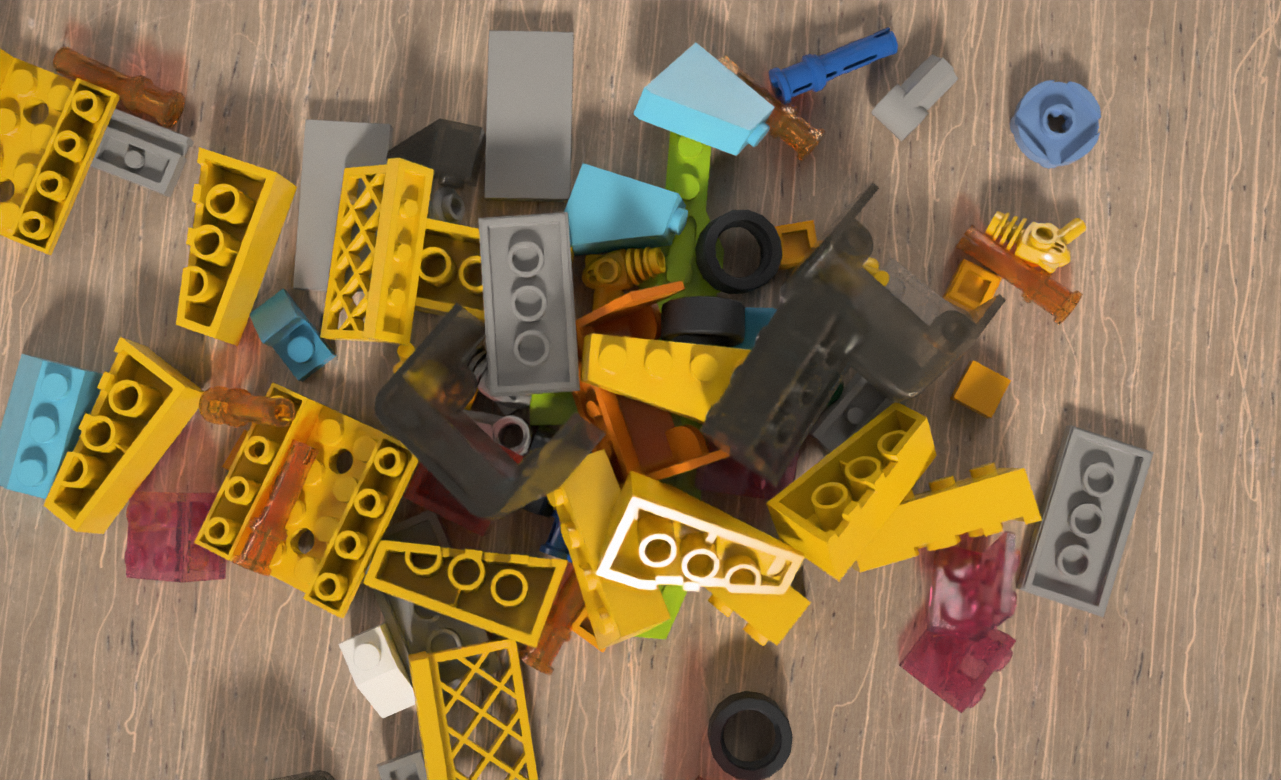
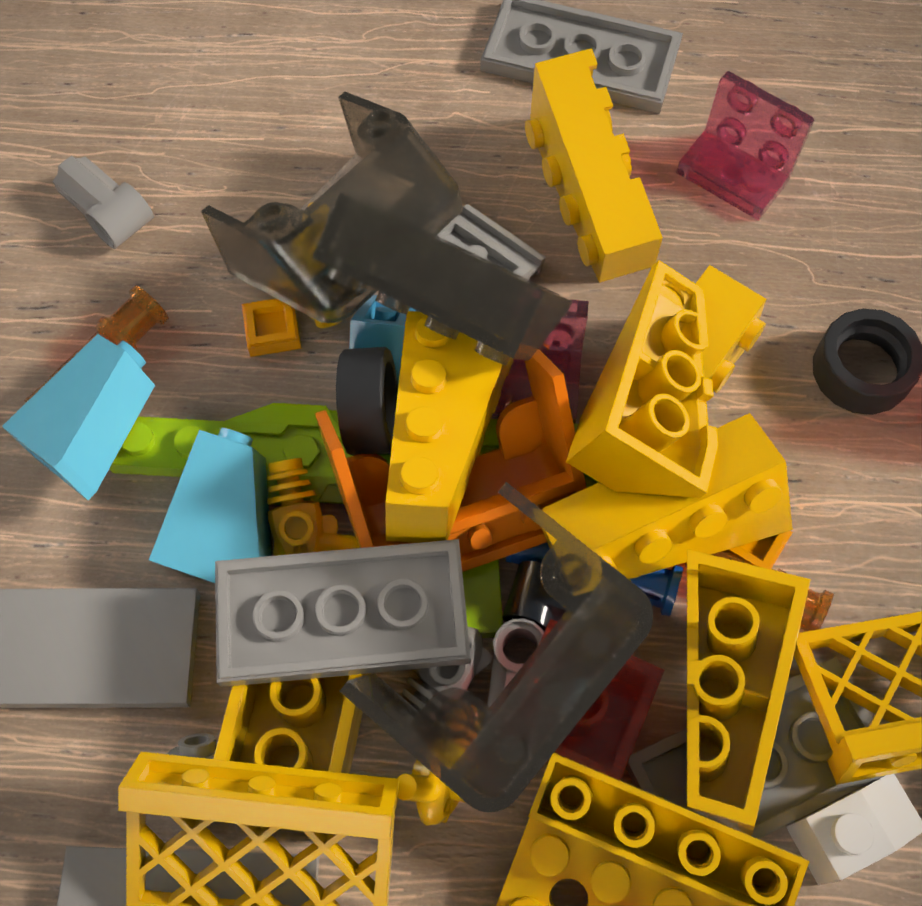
camera: 90 degrees left, 20 degrees down
(449, 149) = (105, 748): clear smoke slope -> none
(766, 238) = (270, 349): black tyre -> none
(816, 70) = (56, 301): blue pin -> none
(854, 489) = (572, 238): yellow wedge -> none
(971, 286) = (325, 150): light orange tile -> none
(973, 589) = (670, 122): clear pink bracket -> none
(980, 389) = (447, 139): light orange tile -> none
(1034, 284) = (324, 88): clear orange pin -> none
(1038, 243) = (278, 90): yellow piece -> none
(1080, 125) = (152, 93): medium blue plate -> none

